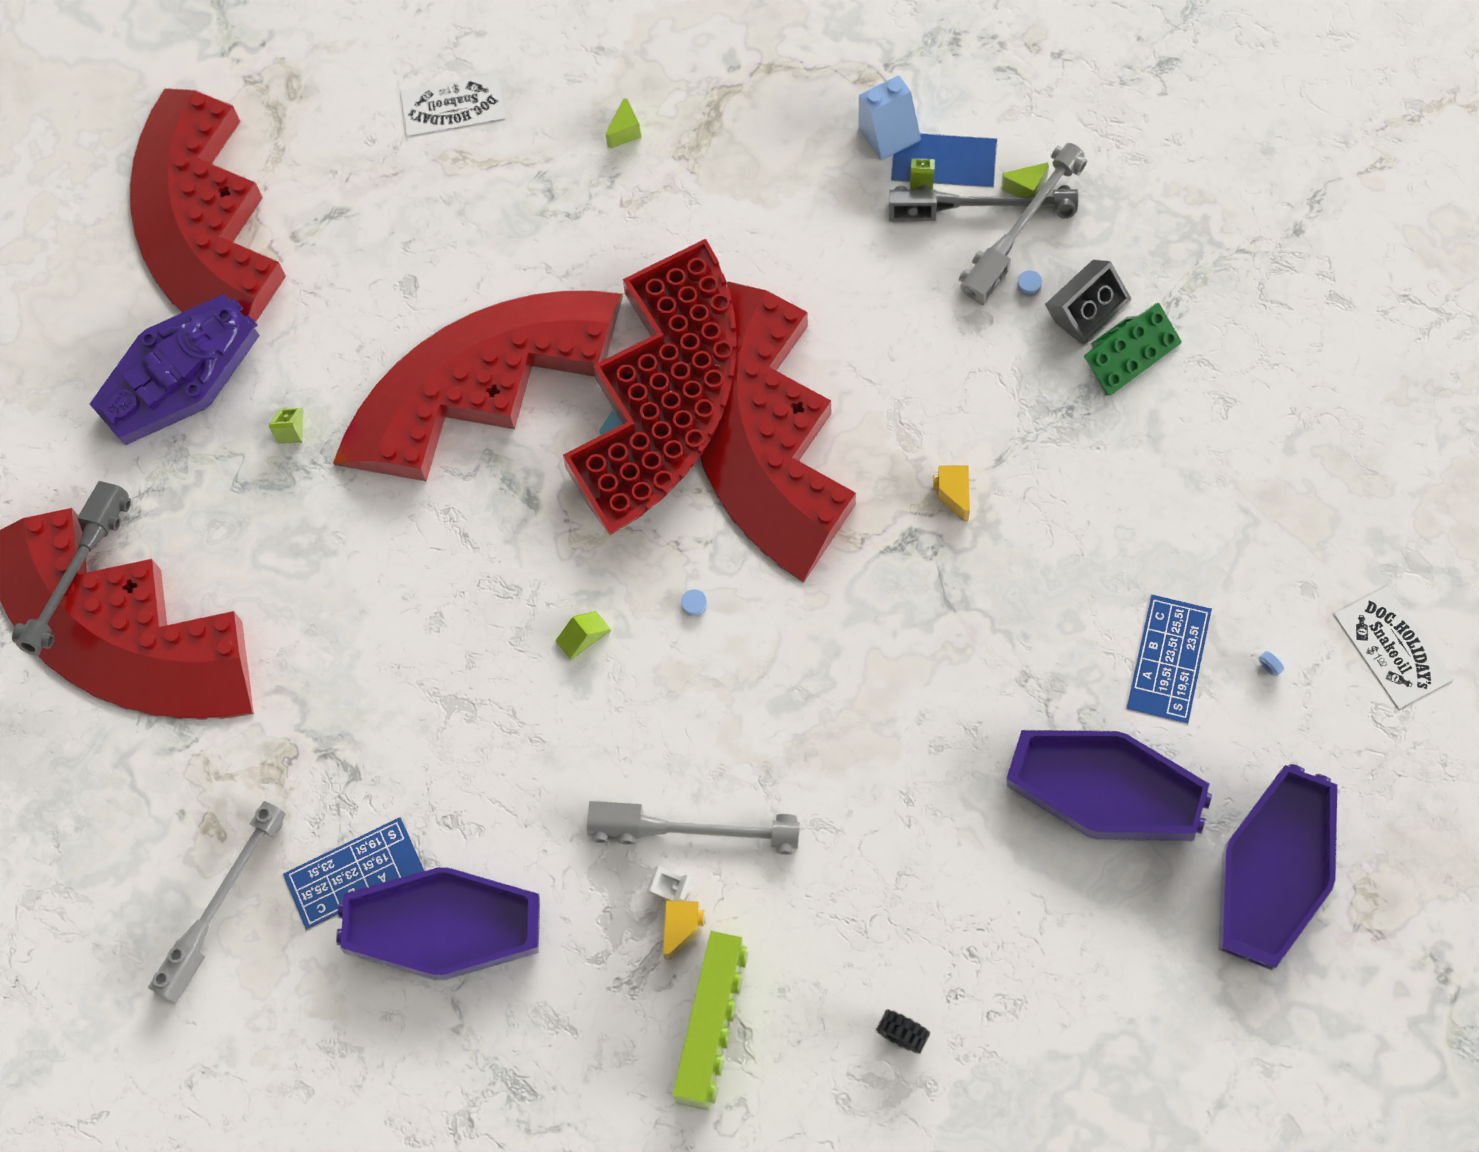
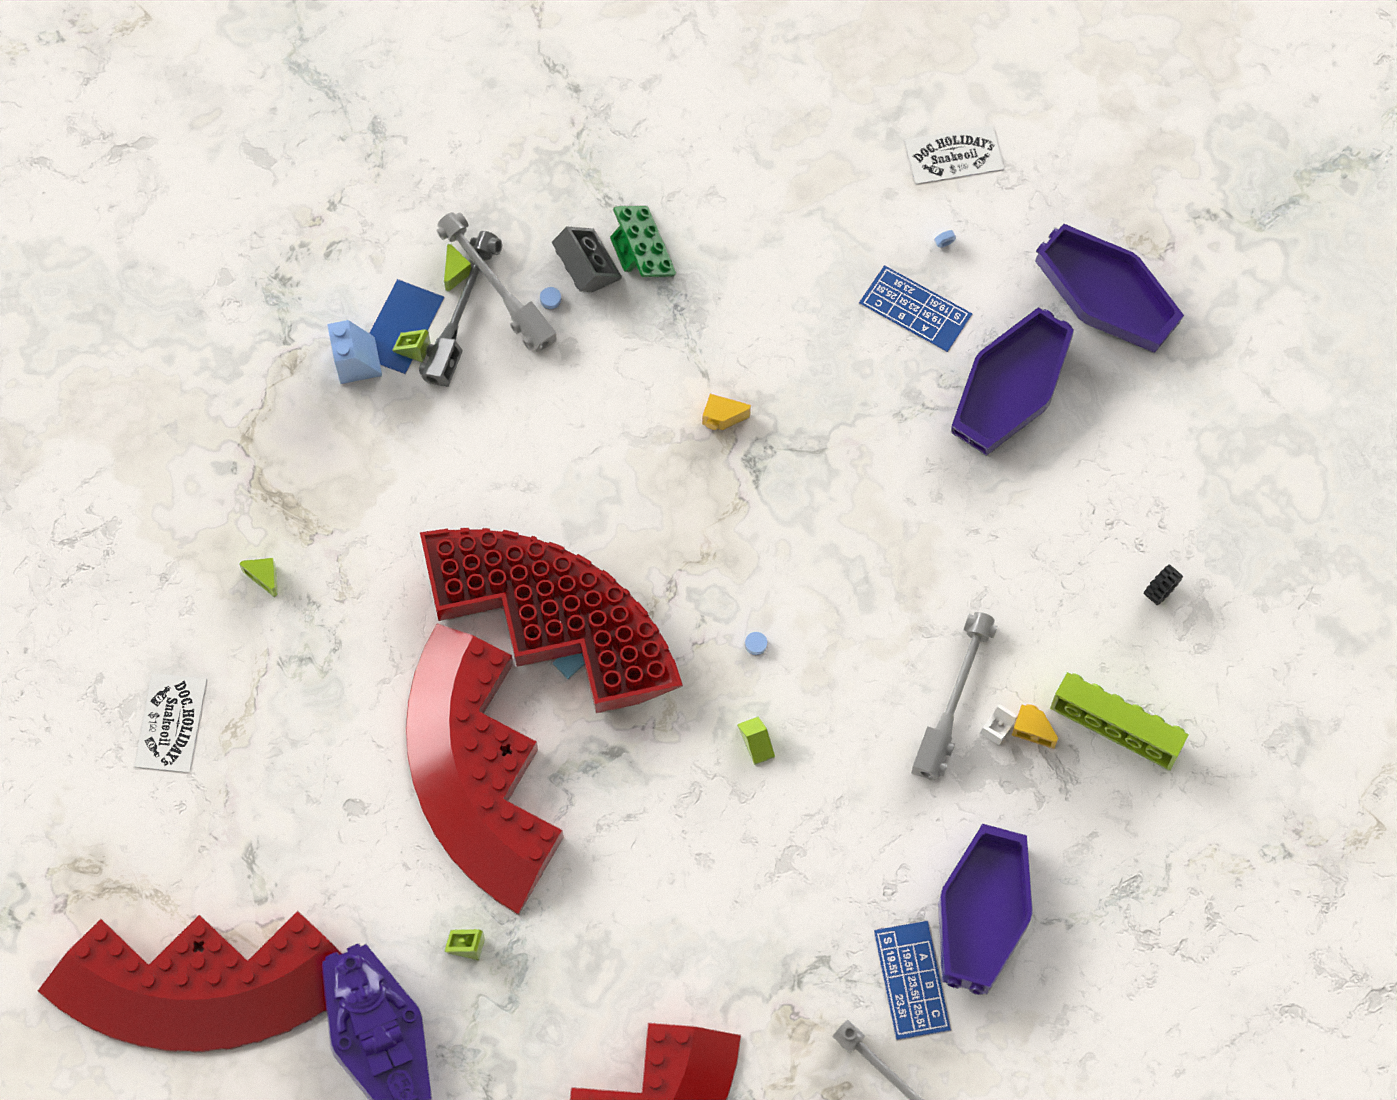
camera: 80 degrees left, 0 degrees up
(764, 434) = (650, 559): red brick -> none

